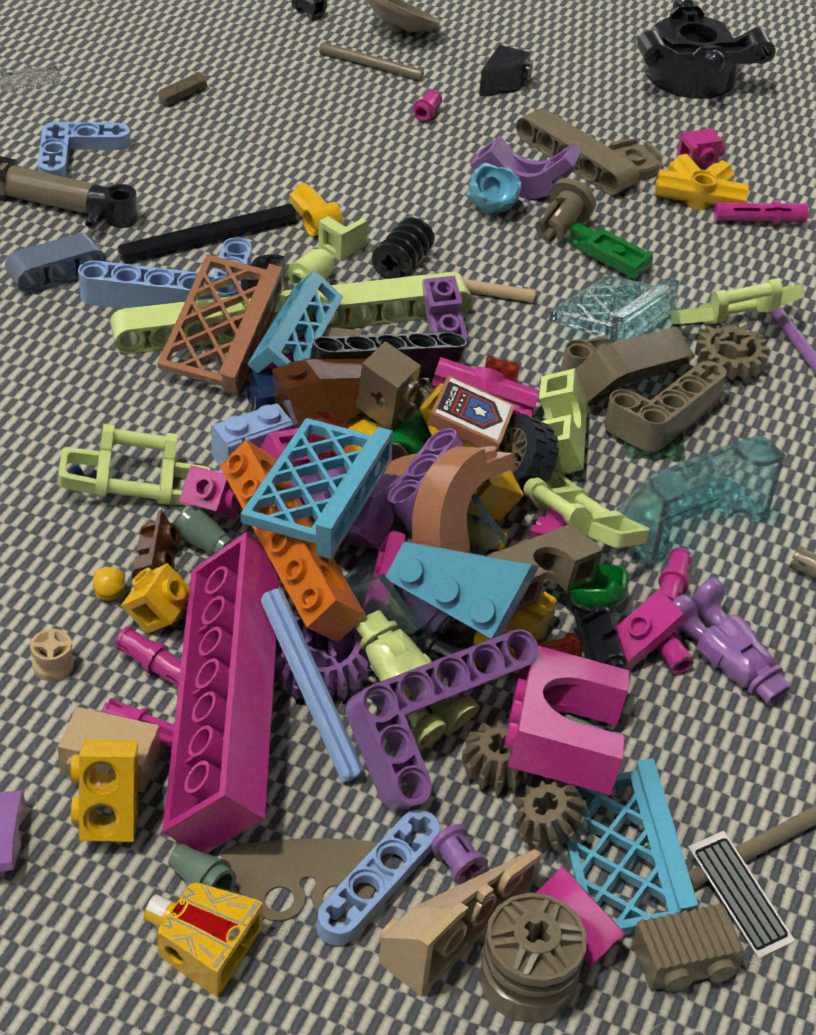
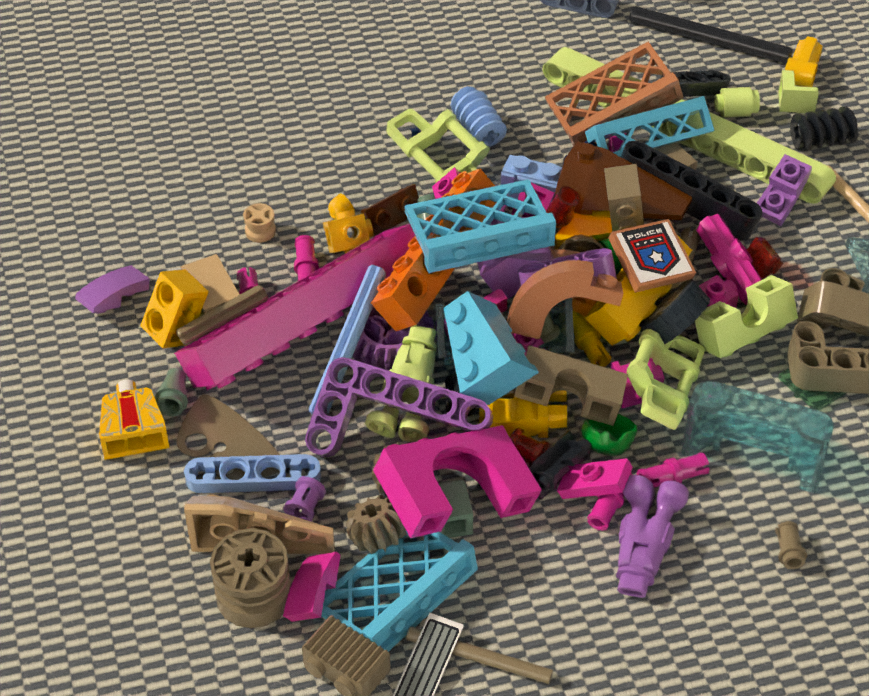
camera: 55 degrees right, 5 degrees up
(122, 416) = (478, 115): none -> light blue piece
(138, 286) = (609, 42): light blue beam -> none
(163, 758) = (222, 314): none -> dark tan axle

